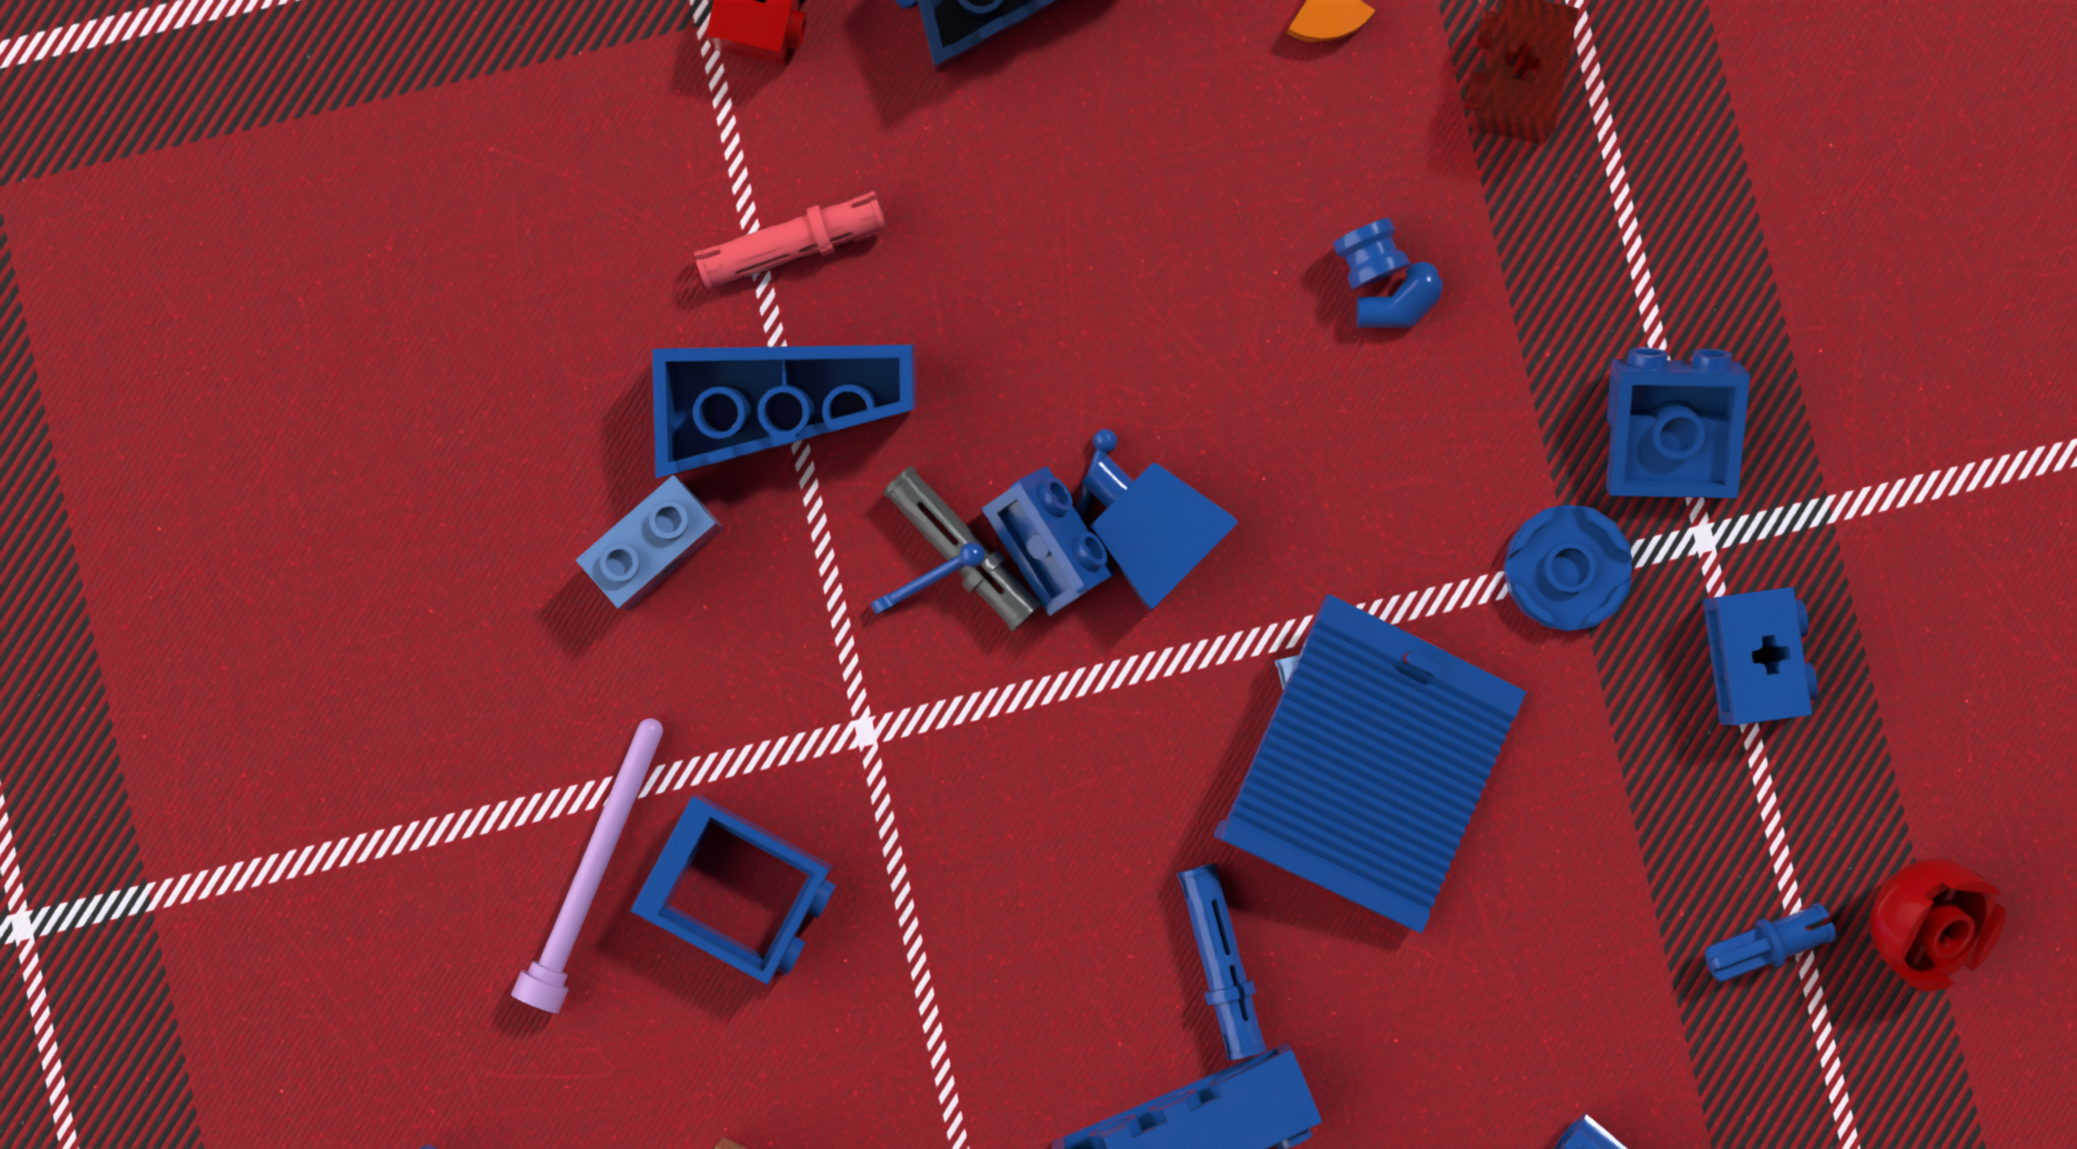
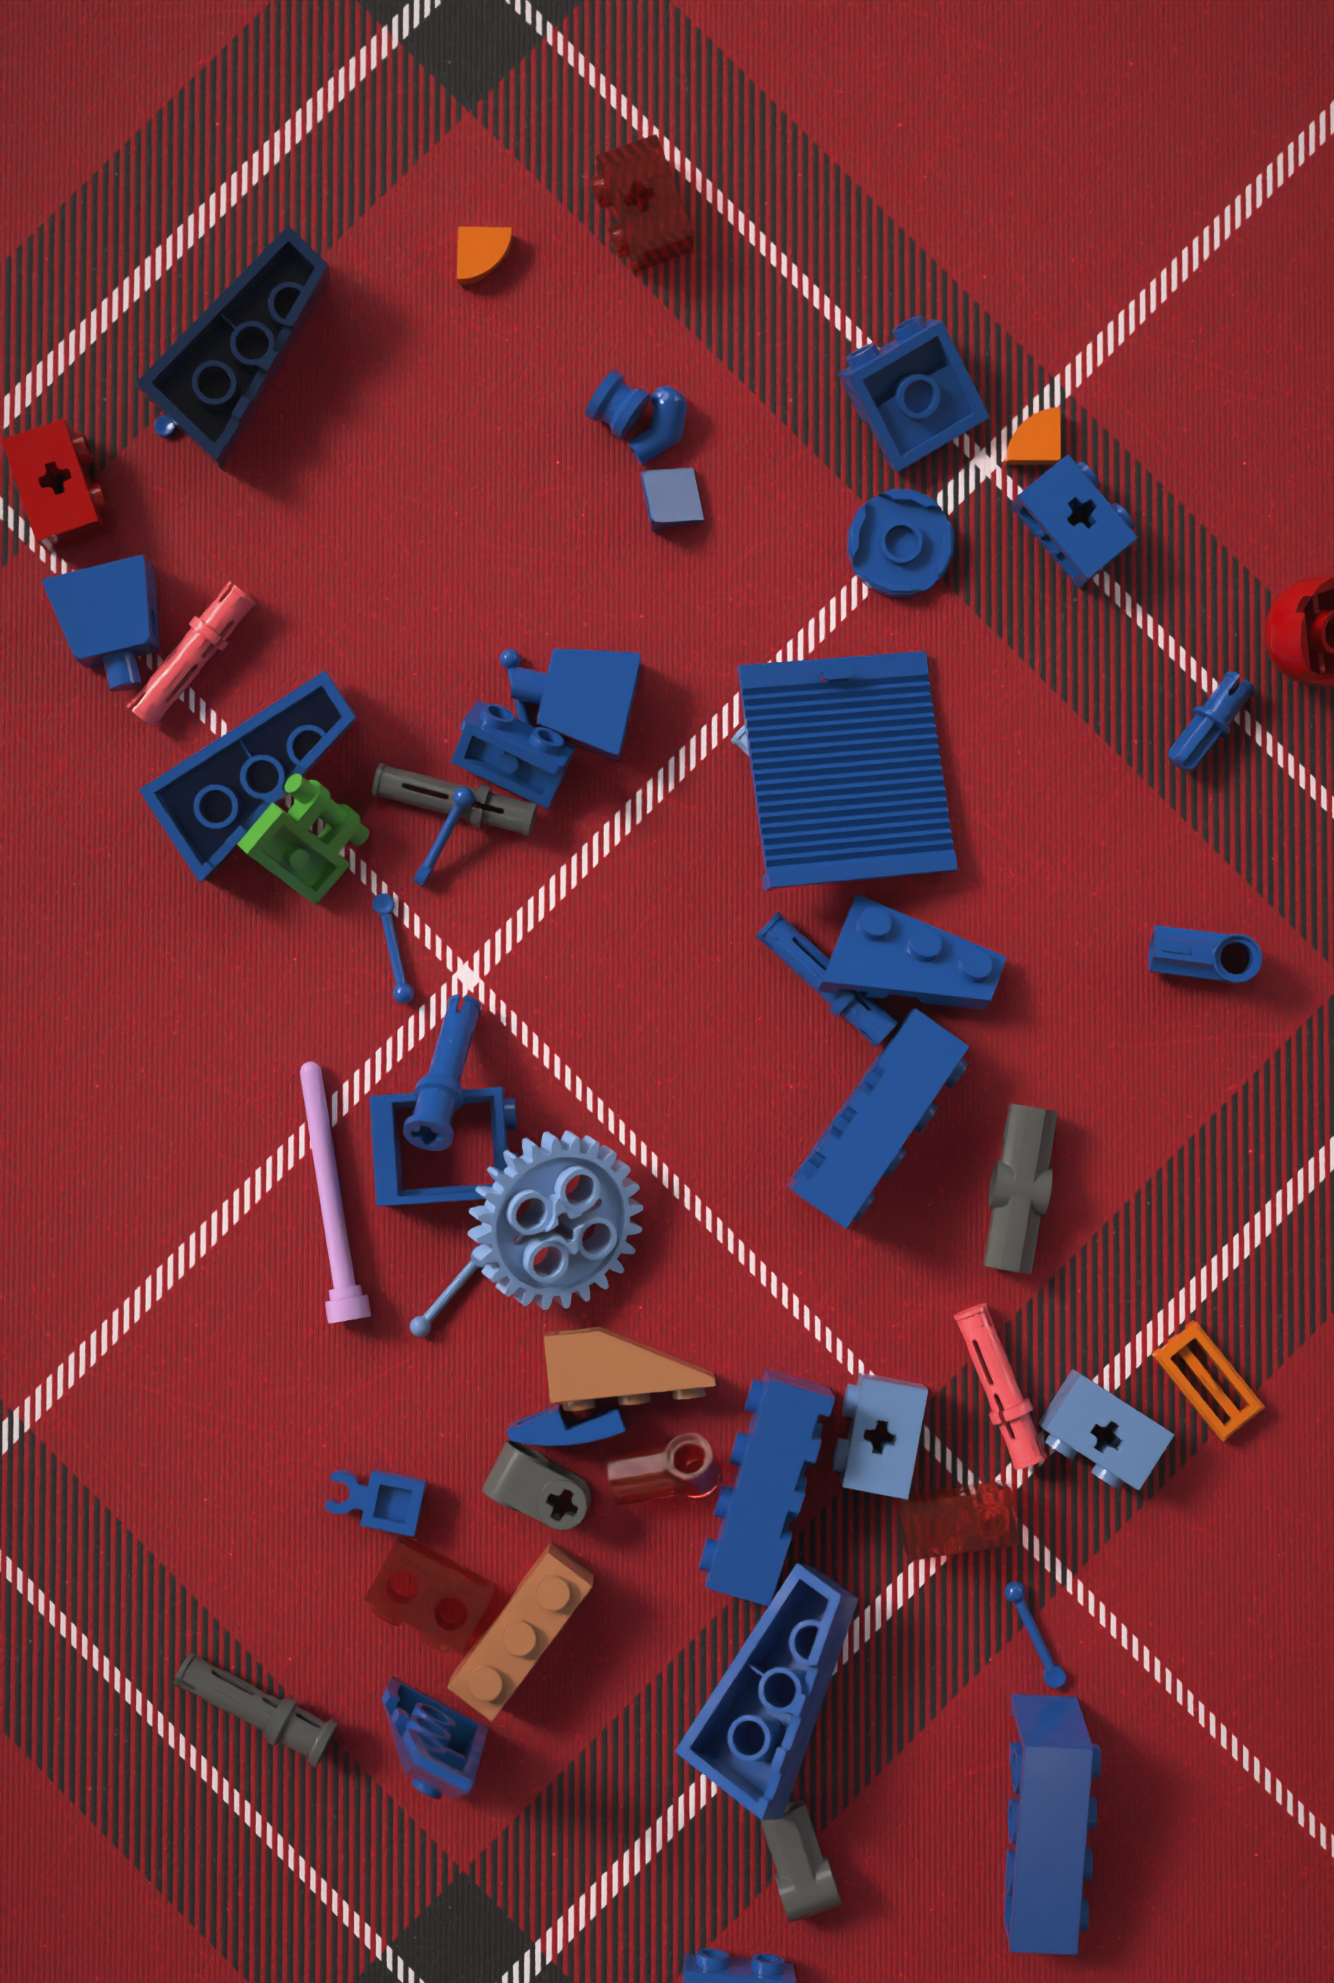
camera: 35 degrees left, 0 degrees up
(649, 543) = (225, 934): medium blue brick -> none
(704, 1021) = (421, 1325): none -> medium blue hinge
(732, 153) = (109, 616): none -> blue torso
(765, 837) = (440, 1091): none -> blue pin
(768, 503) = (296, 854): none -> bright green plate
(800, 1036) = (555, 1220): none -> light blue gear
(826, 609) = (384, 906): none -> blue hinge
(1313, 988) = (906, 957): none -> blue wing
(1366, 380) = (671, 498): none -> slope
(1771, 549) = (1036, 440): none -> orange tile

